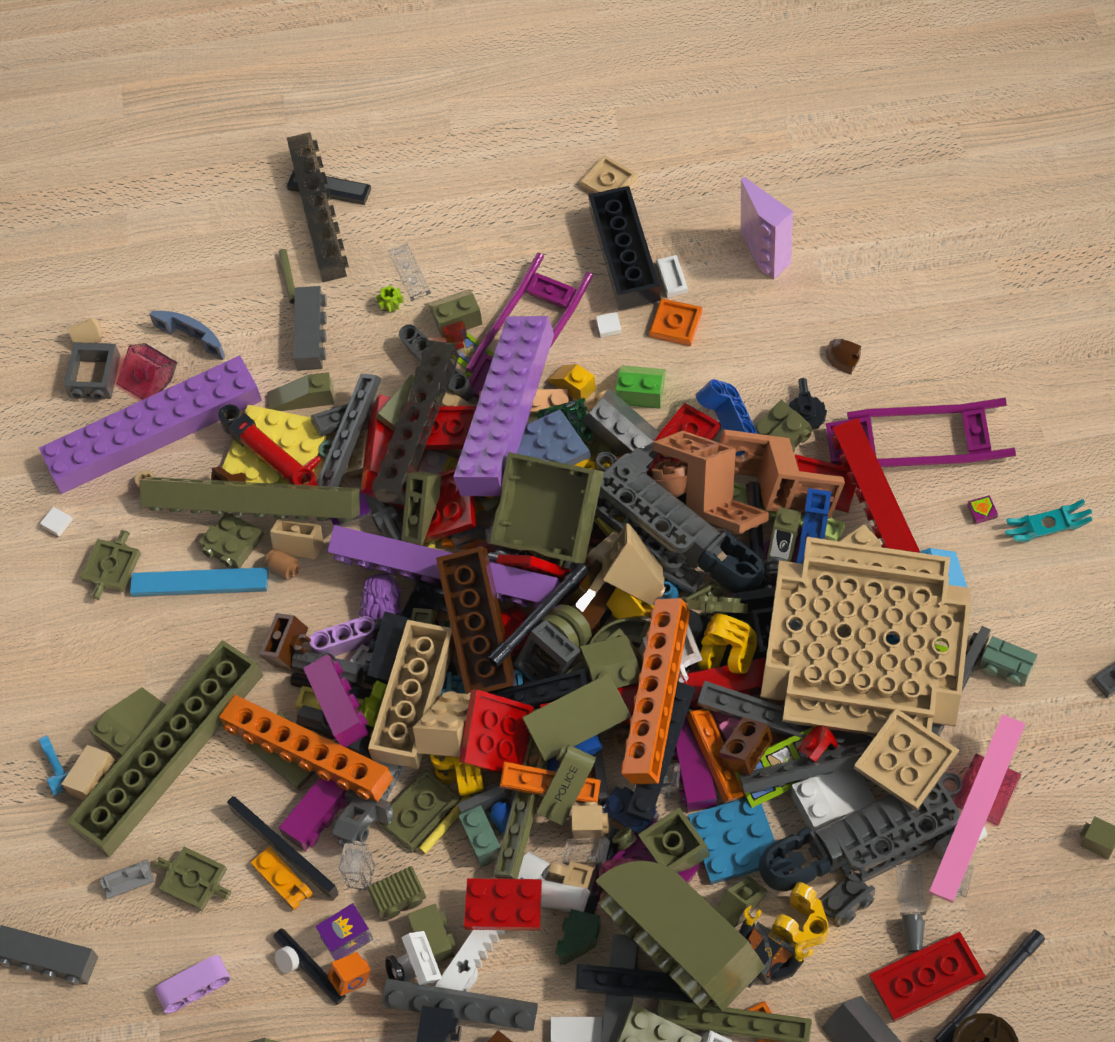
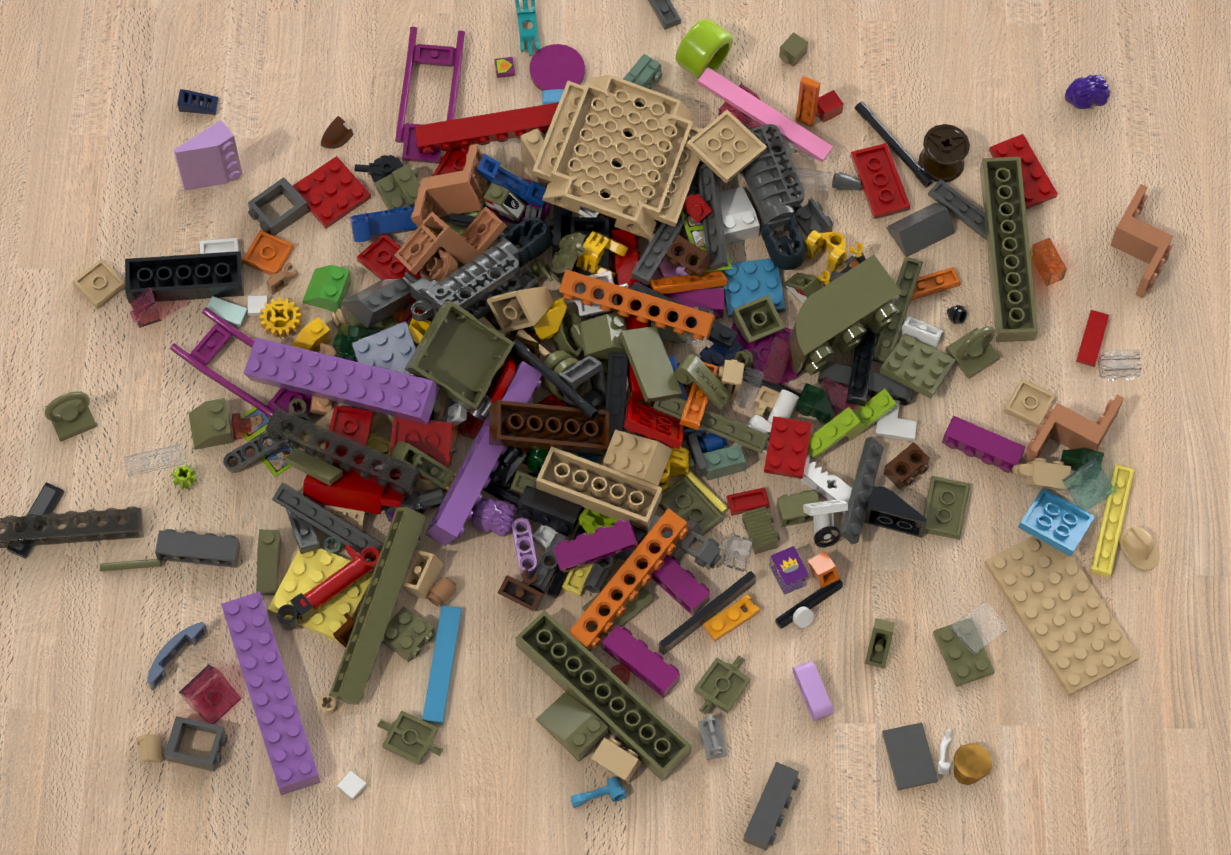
camera: 90 degrees left, 5 degrees up
(201, 766) = (621, 672): none -> clear red tile
(215, 784) = (641, 661): none -> magenta brick
(437, 876) = (747, 501): none -> red tile
(448, 187) = (70, 414): none -> olive tile
(478, 375) = (295, 402): none -> olive bush
(553, 979) = (850, 423): none -> lime bracket
(579, 223) = (145, 309): none -> clear pink slope
(592, 954) = (837, 396): none -> clear pink slope
(594, 346) = (277, 323): none -> yellow gear
(595, 297) = (228, 311): none -> light aqua tile
(639, 335) = (280, 280): none -> medium nougat plate
(741, 336) = (300, 207): none -> dark grey window
(767, 365) = (332, 192): none -> red plate
(850, 203) = (198, 97): none -> dark blue slope
(995, 566) = (555, 66): none -> magenta tile
(1005, 852) = (807, 101): none -> orange tile
(1024, 893) = (829, 106): none -> red brick
(1060, 720) = (704, 47): none -> lime wheel

